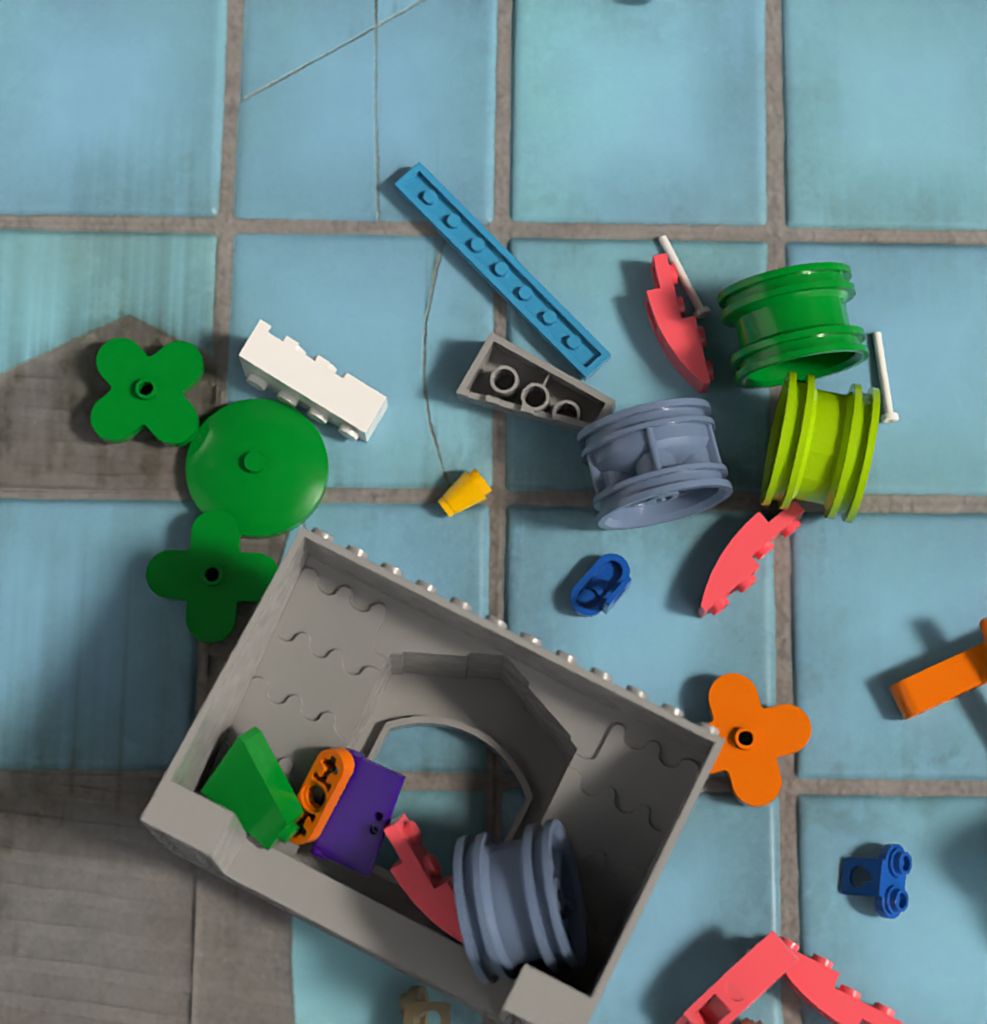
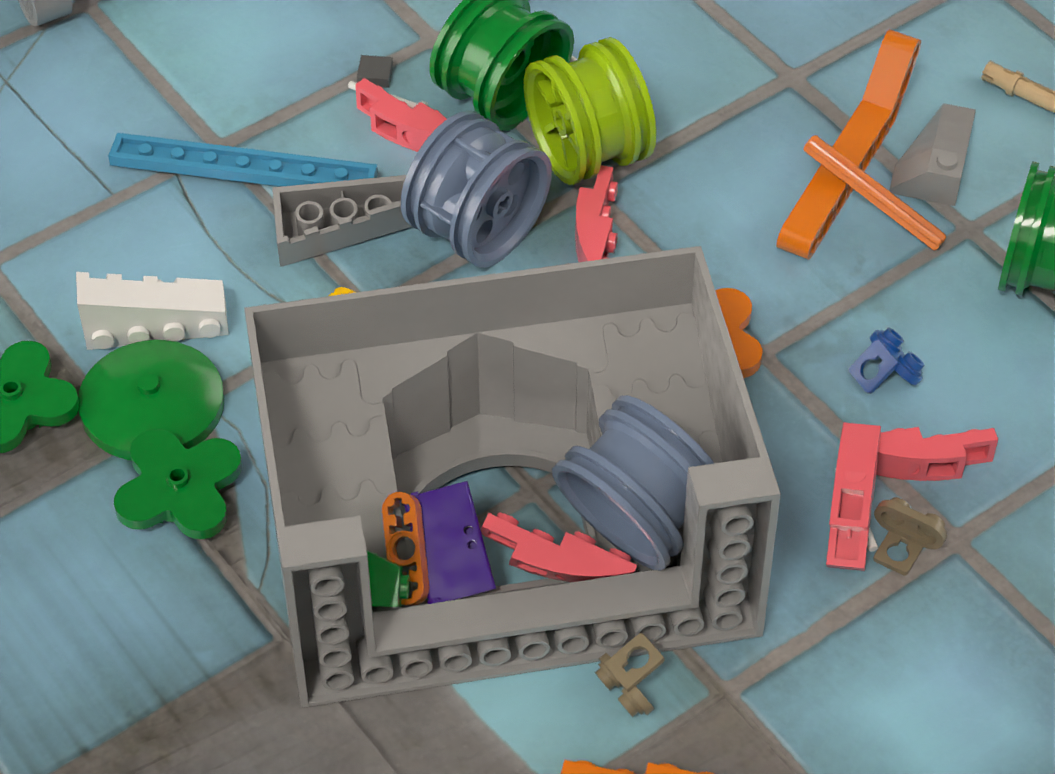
camera: 35 degrees left, 25 degrees down
(693, 239) = (375, 69): none -> dark grey tile

